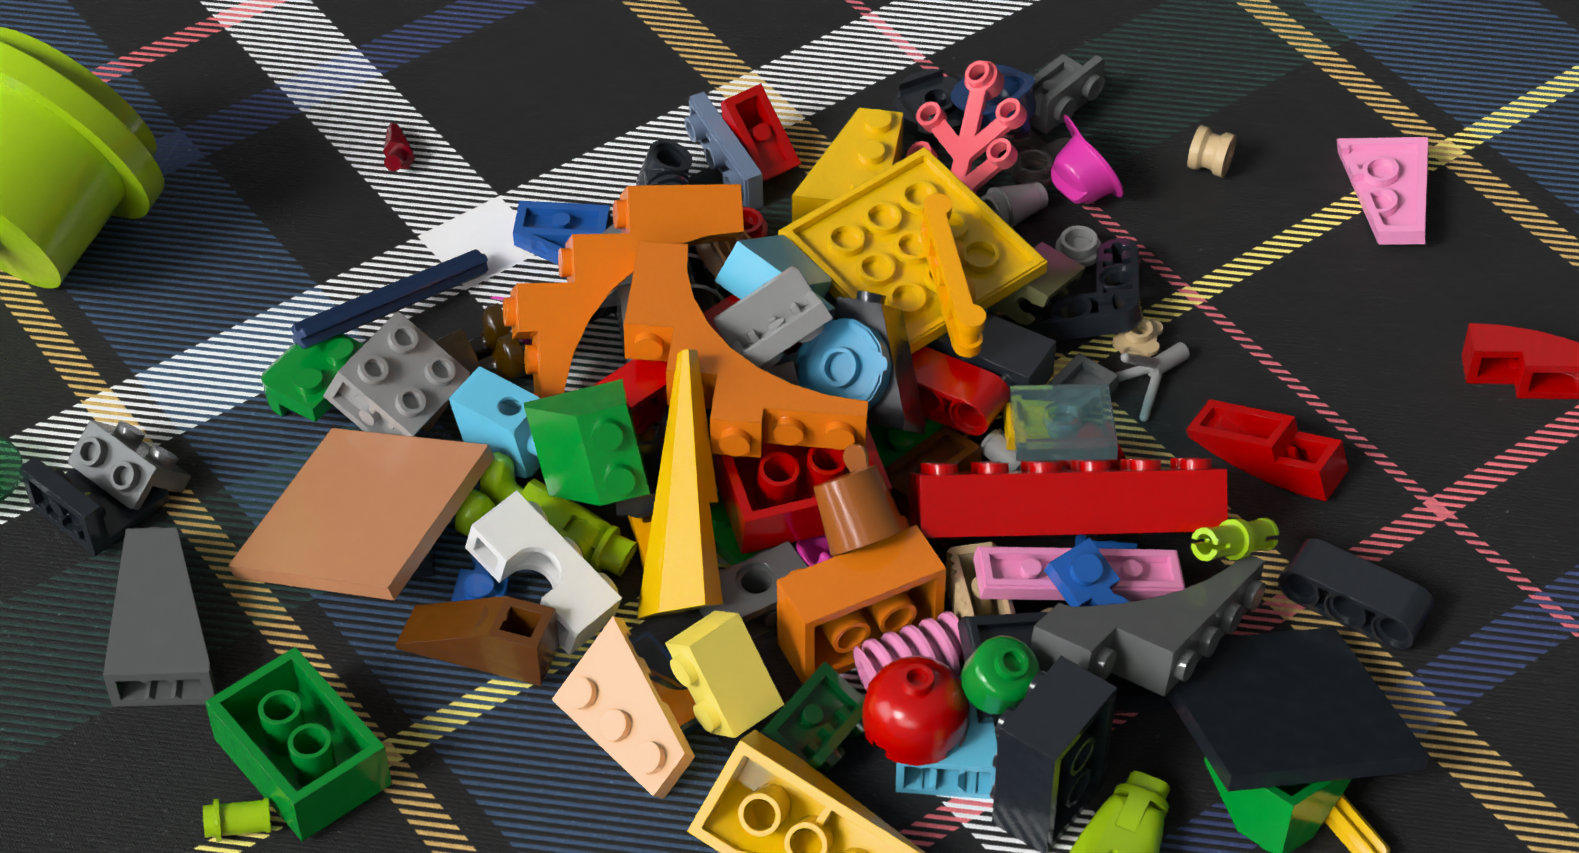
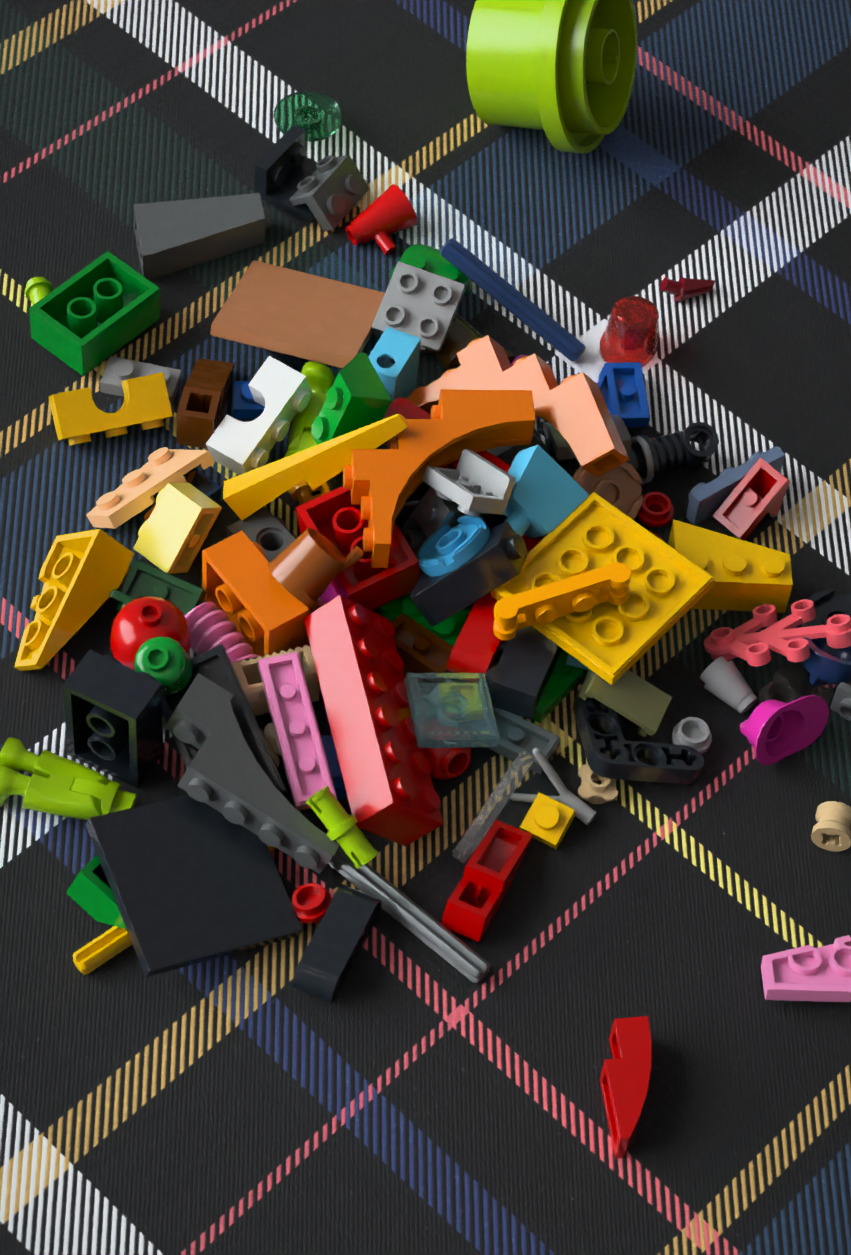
camera: 75 degrees right, 5 degrees up
(193, 409) = (383, 217): none -> red piece
(418, 716) = (122, 369): none -> light grey plate
(469, 203) = (630, 332): none -> clear red hat
(488, 773) = (78, 416): none -> yellow arch
(1084, 577) = (277, 725): blue plate -> none
(1172, 423) = (493, 806): none -> clear tile
(1187, 386) = (548, 820): none -> yellow plate
(1297, 611) = (310, 902): none -> red plate
(1329, 514) = (413, 917): none -> dark grey axle

